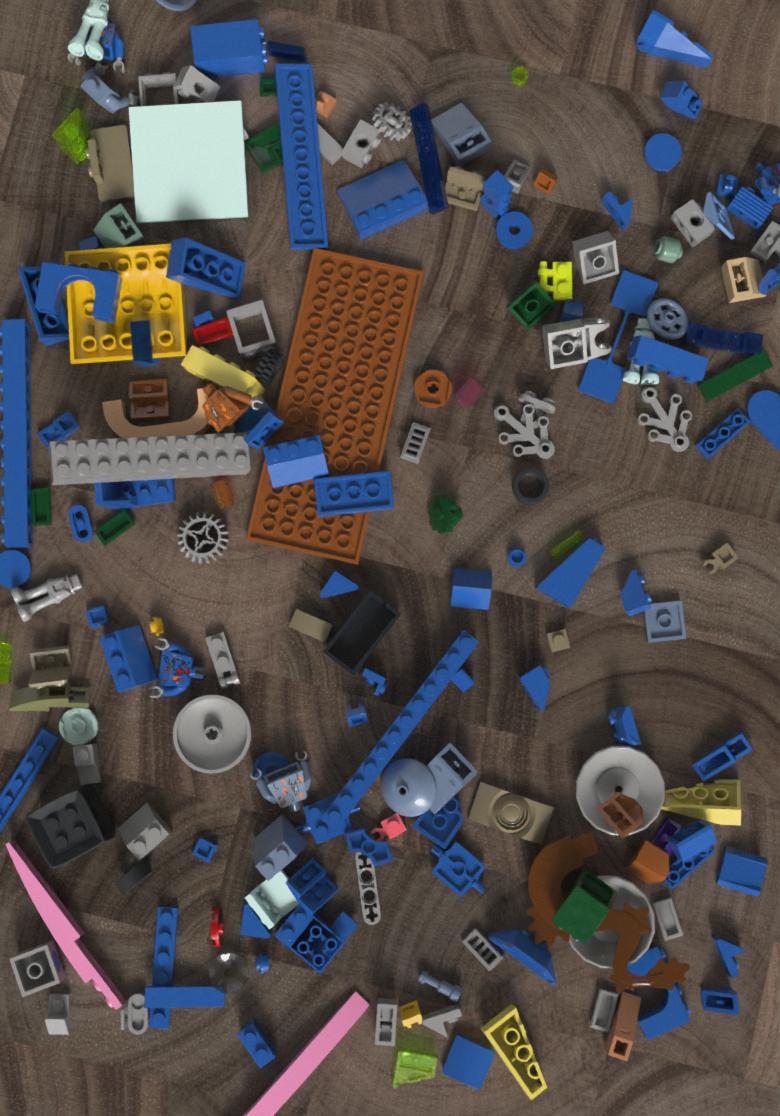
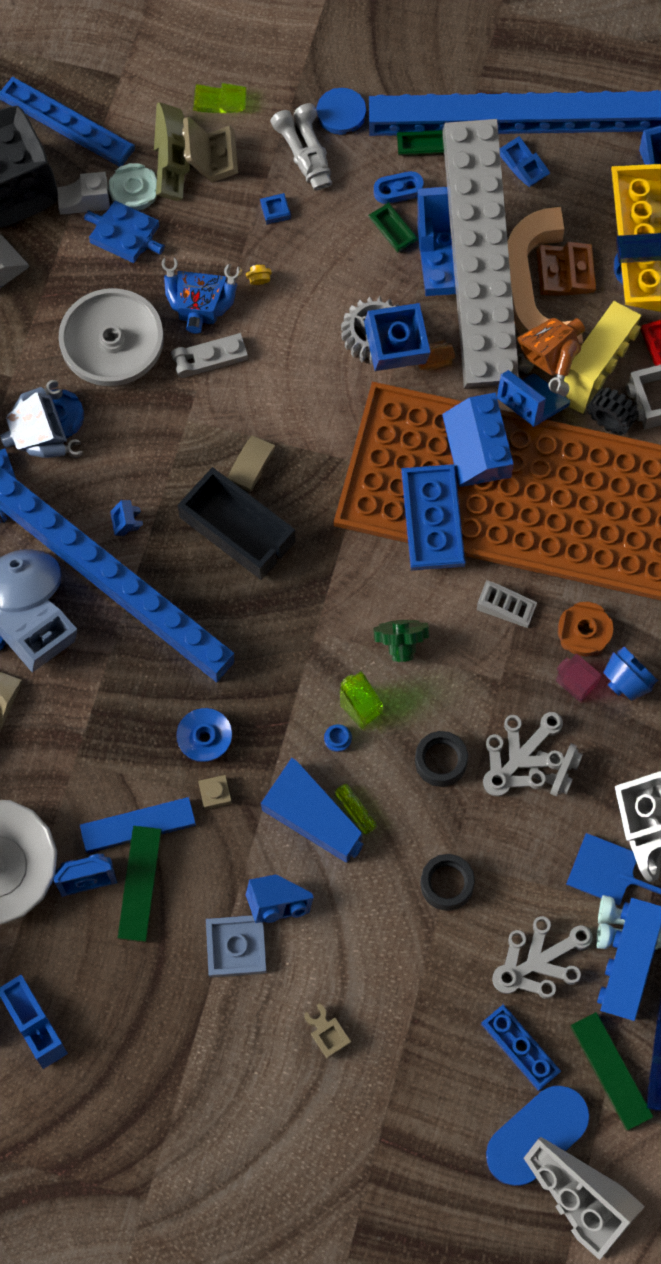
camera: 95 degrees right, 15 degrees down
(118, 730) = (124, 231): none -> blue plate
(128, 658) = (217, 239): blue slope -> none
(218, 519) = (397, 337): none -> blue brick
(338, 585) = (306, 497): blue slope -> none
(372, 677) = (174, 542): blue bracket -> none
(462, 680) = (166, 660): blue slope -> none
(469, 358) = (628, 675): none -> blue cone
(471, 589) = (295, 673): blue slope -> none
(493, 542) = (359, 699): none -> clear neon green slope
(529, 652) = (204, 722): none -> blue dish
(537, 685) = (150, 757): blue slope -> none
(583, 692) = (118, 829): none -> blue tile
(619, 467) = (452, 861): none -> black tyre
(626, 688) = (139, 884): none -> dark green tile

